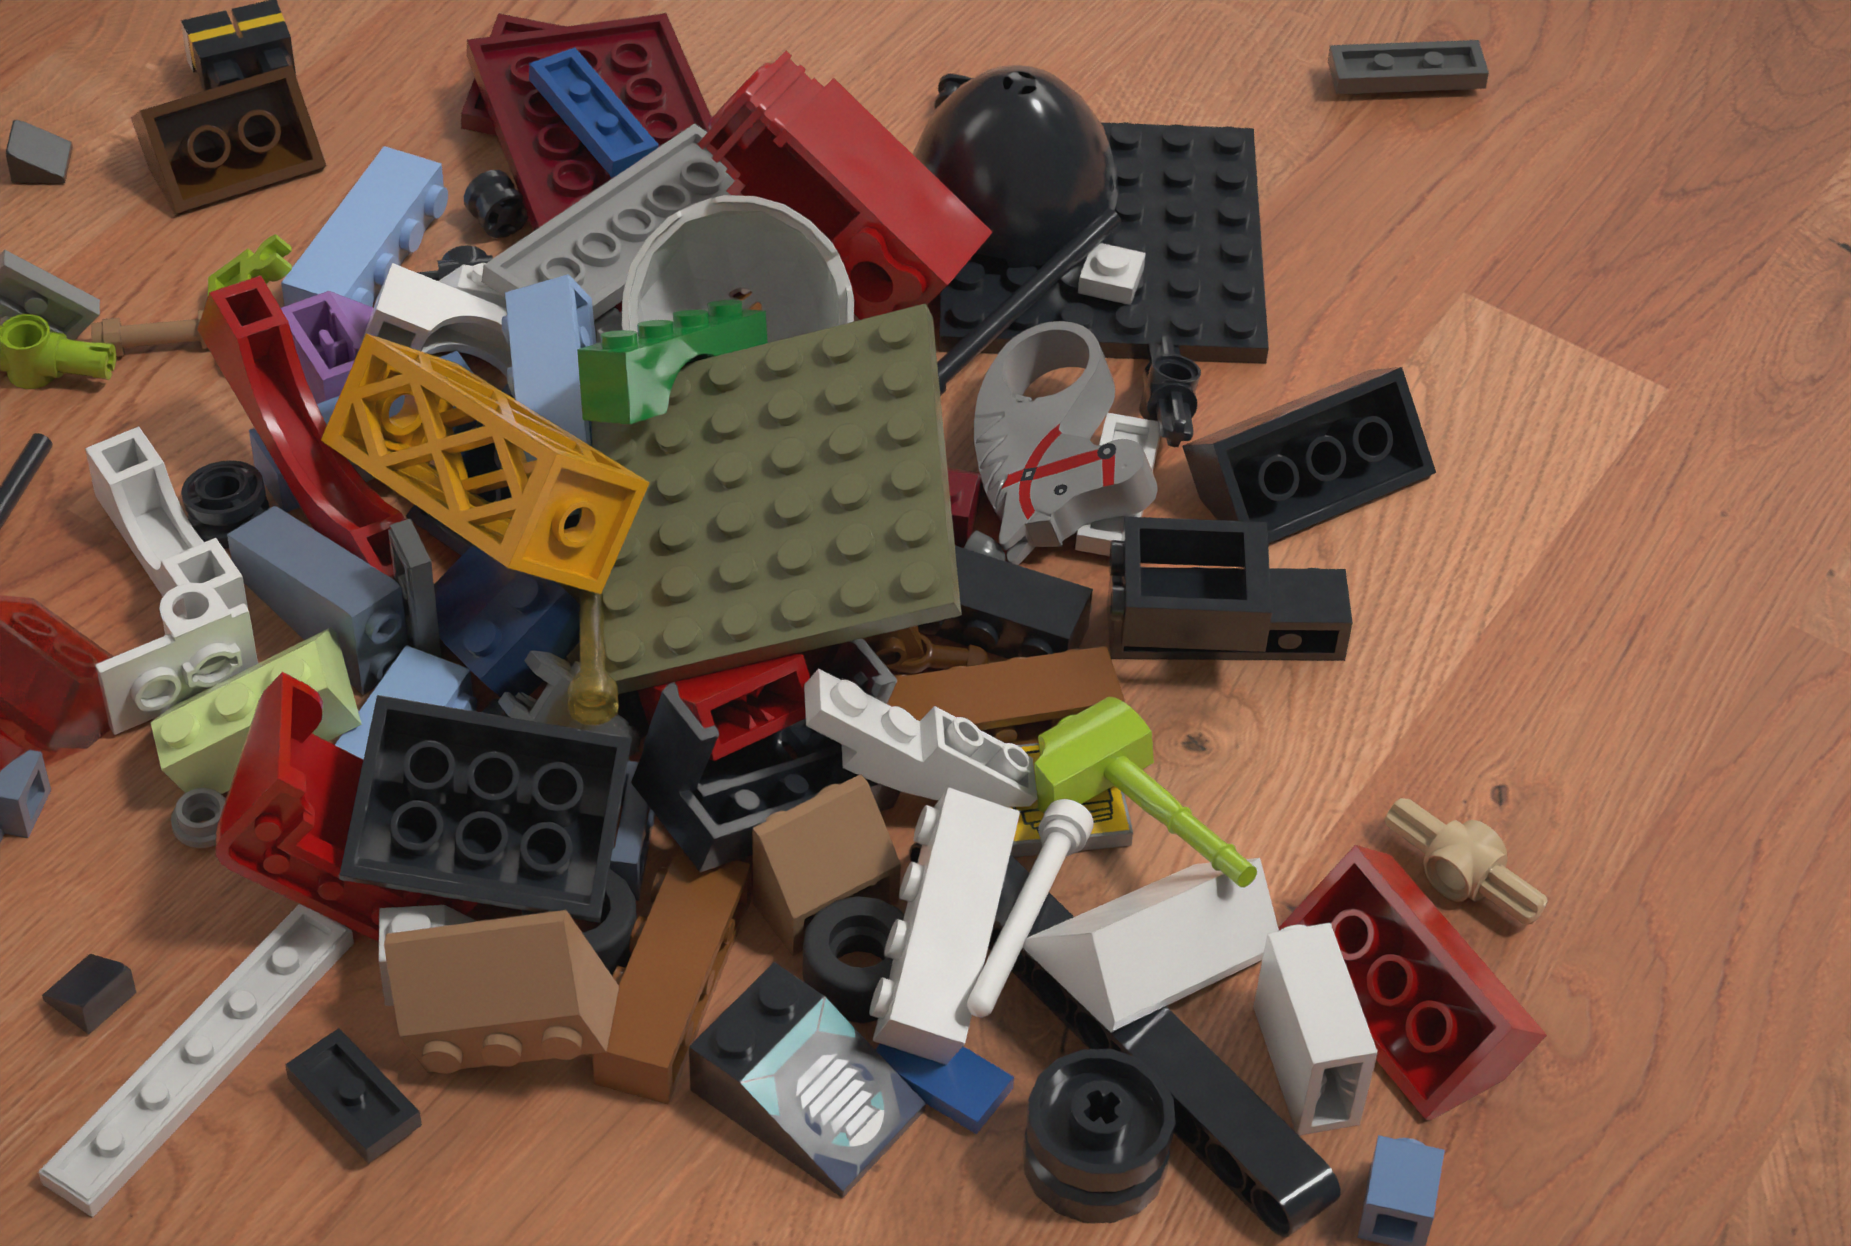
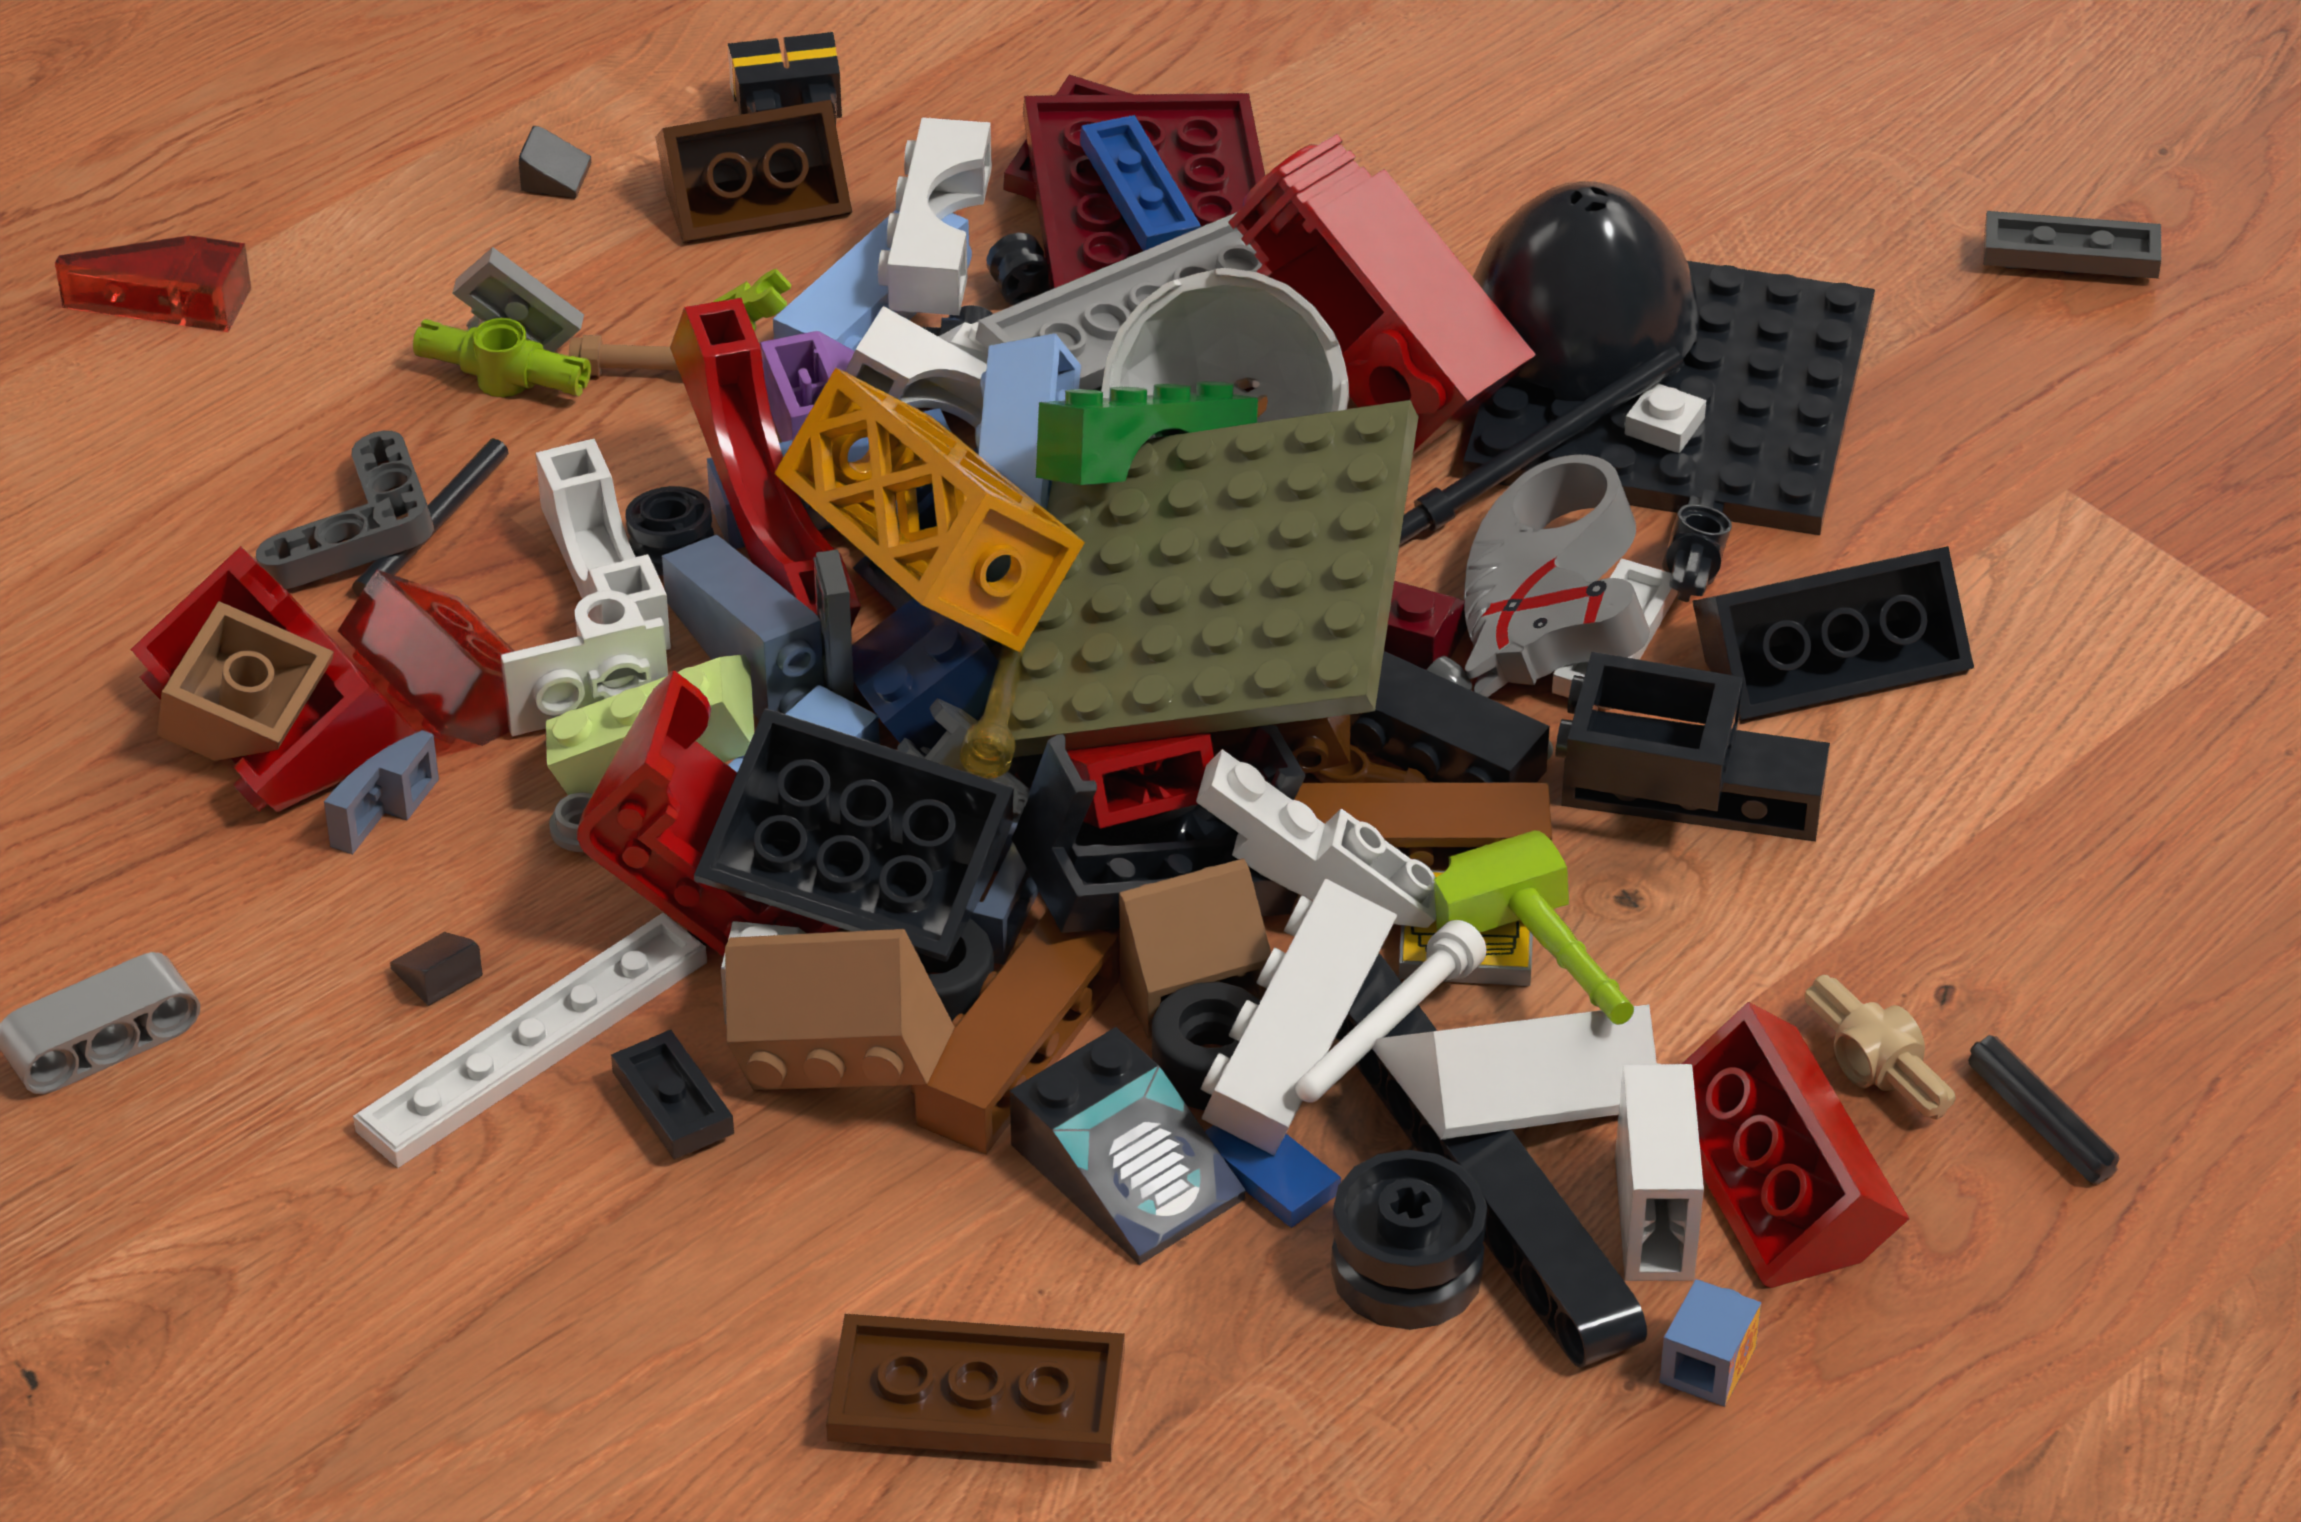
camera: 15 degrees right, 5 degrees down
(416, 204) = (927, 257): none -> white arch
(1624, 899) = (2044, 1110): none -> black axle

